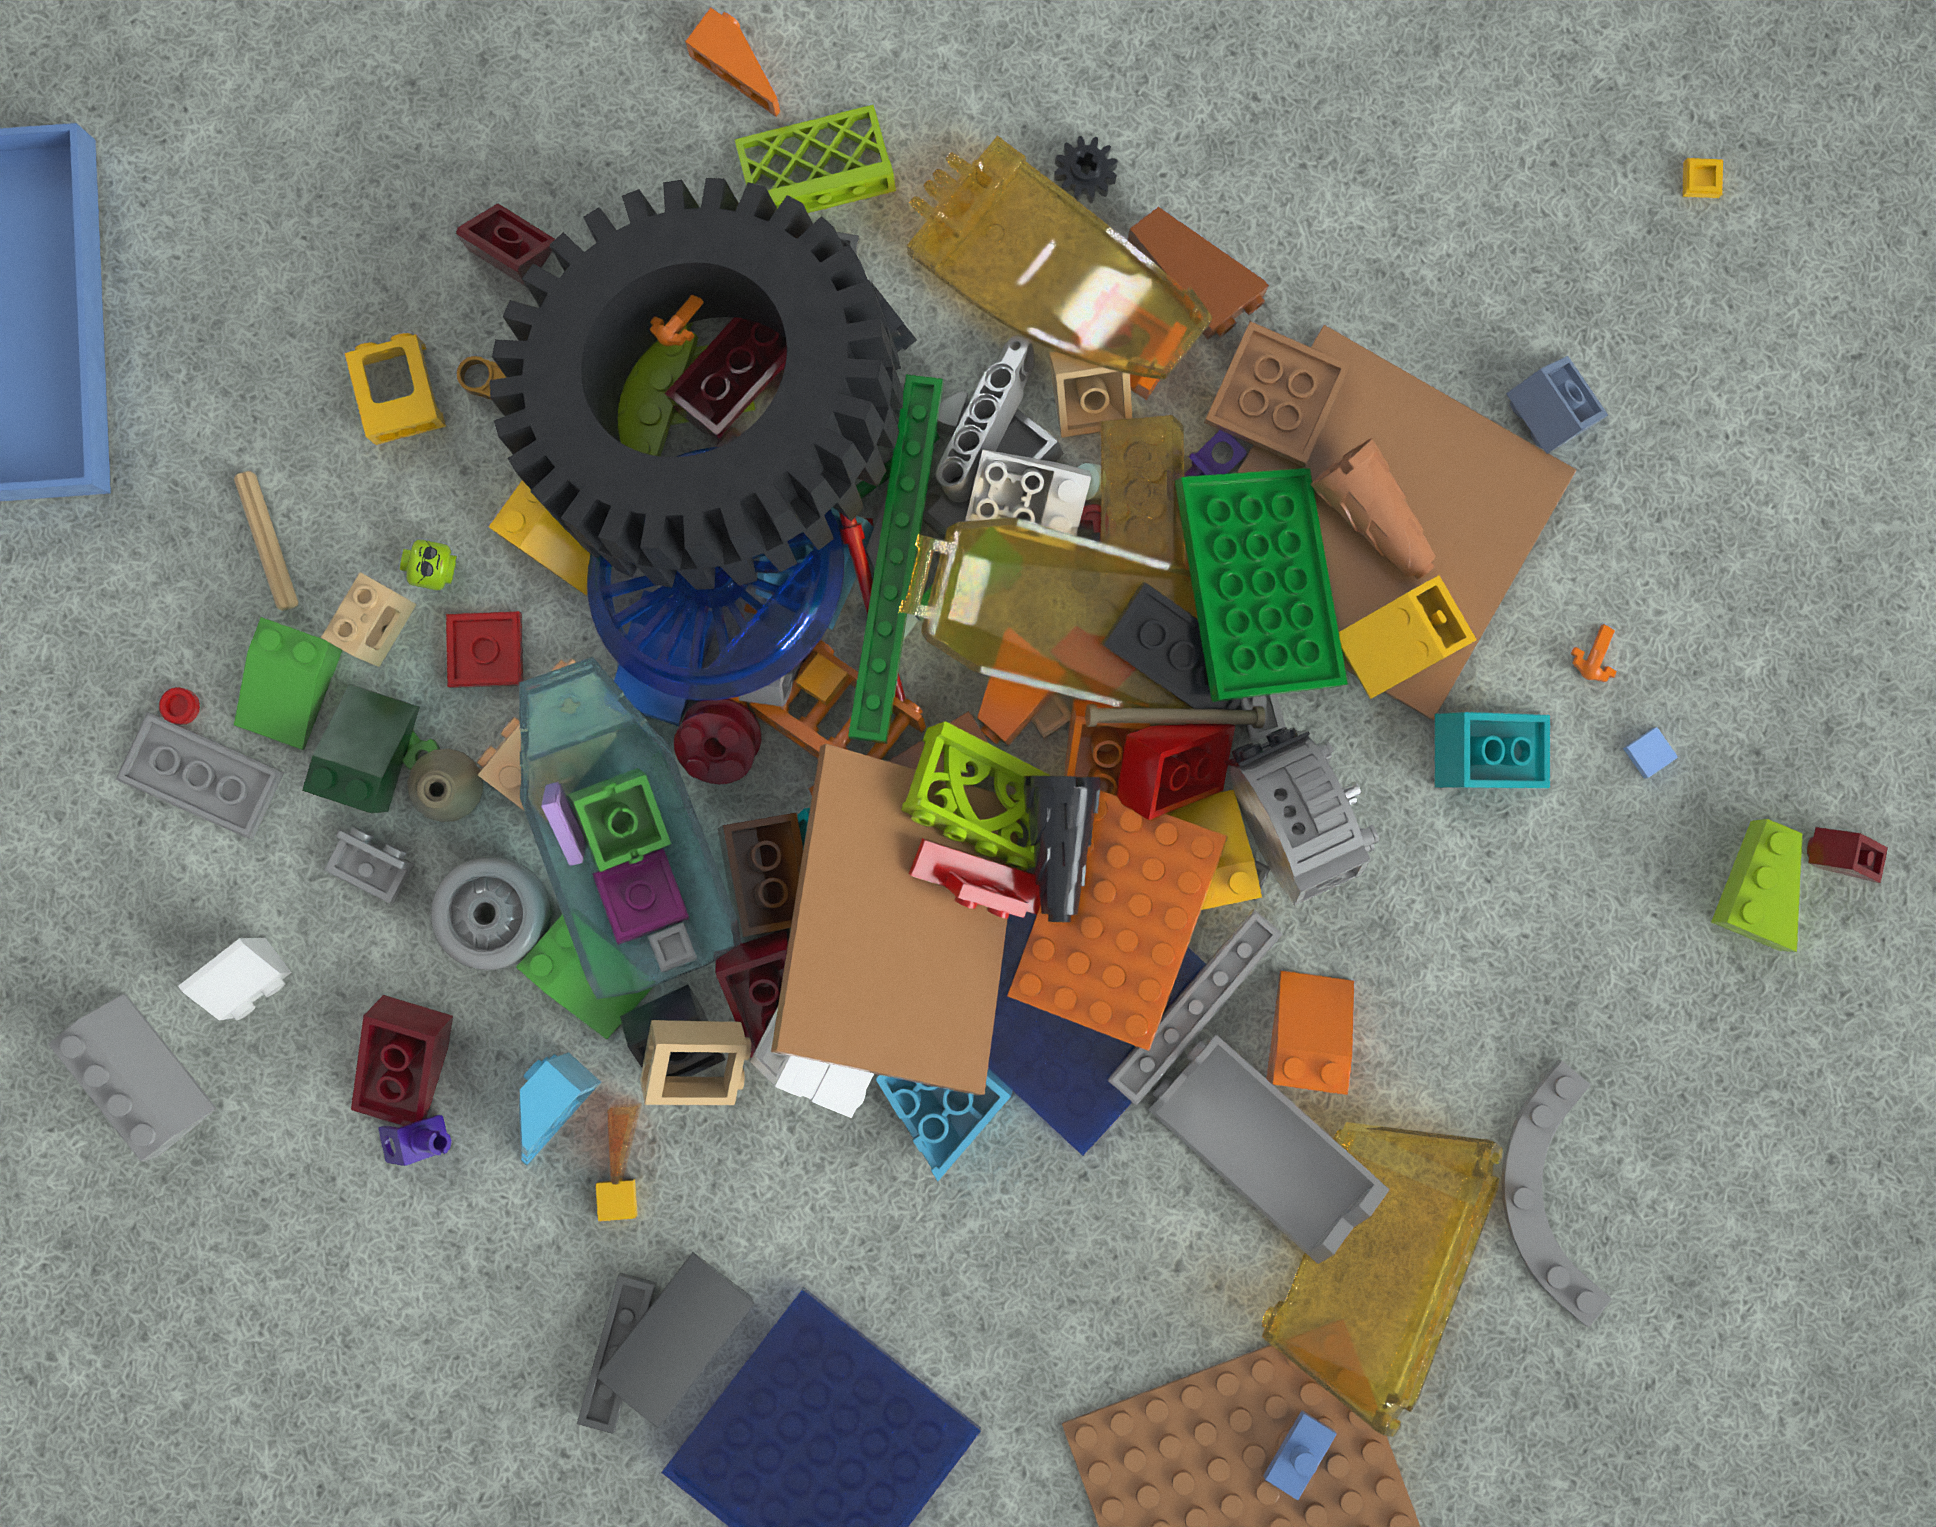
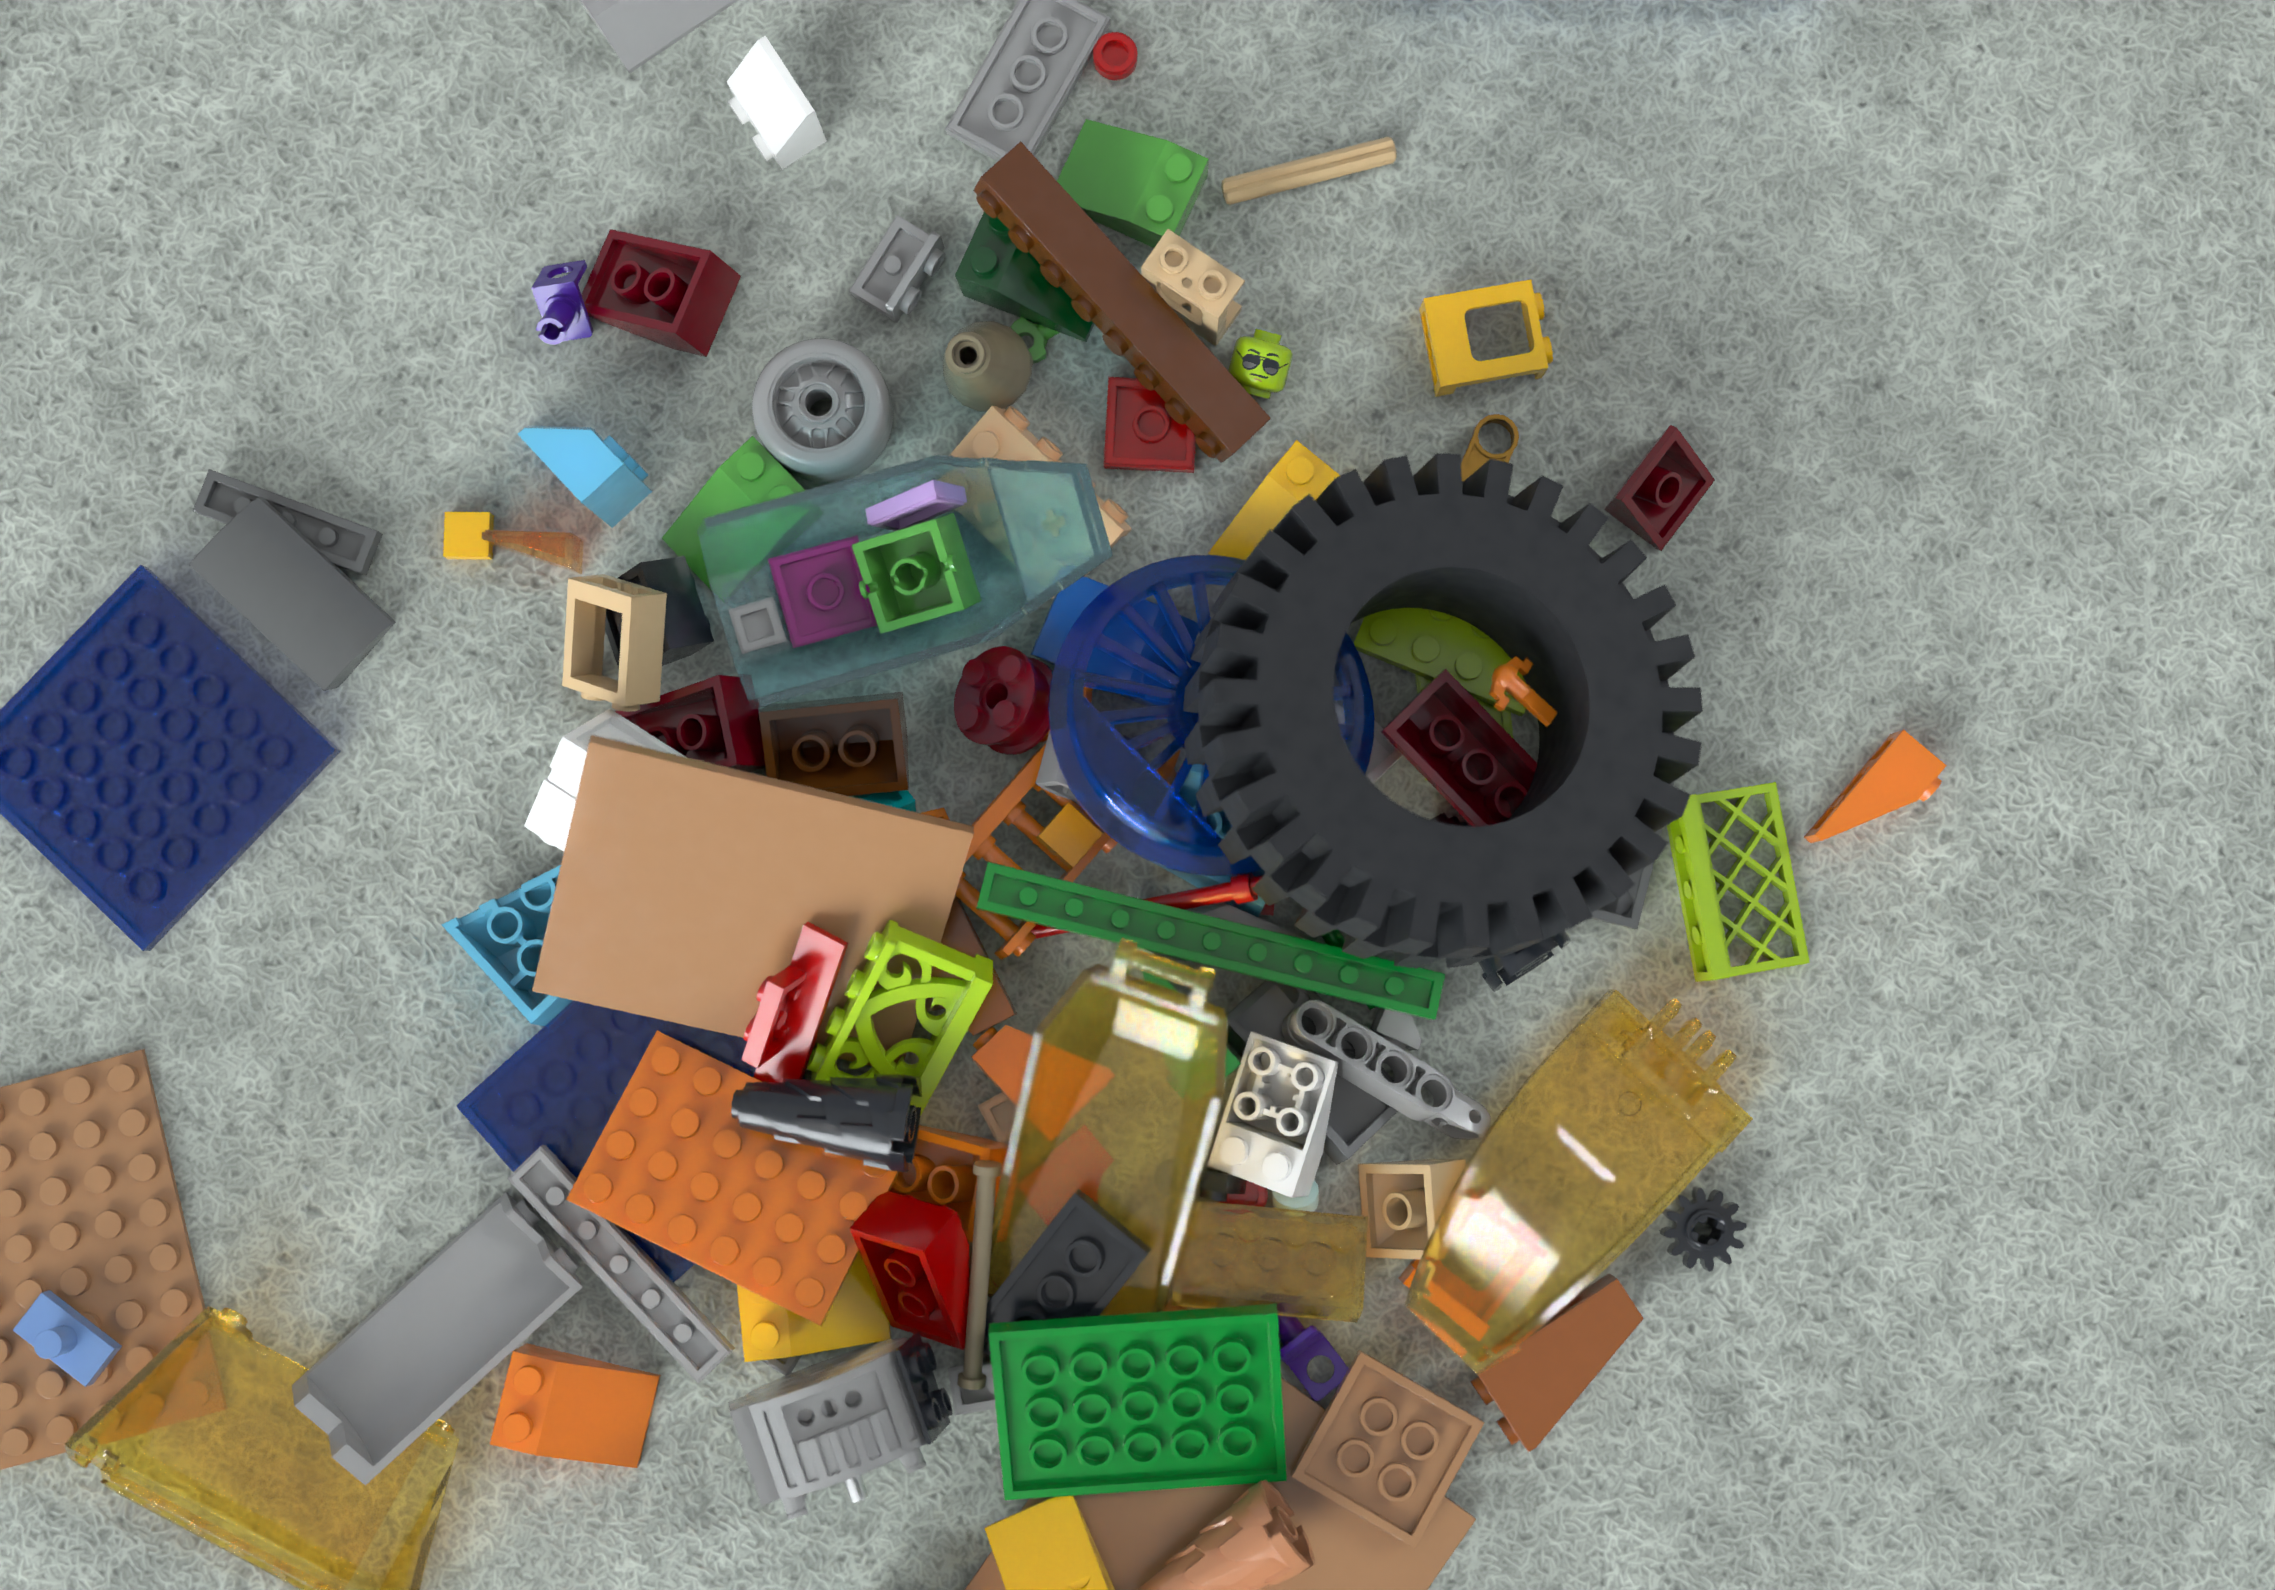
camera: 105 degrees right, 0 degrees up
(385, 677) = (1119, 303): none -> reddish brown brick

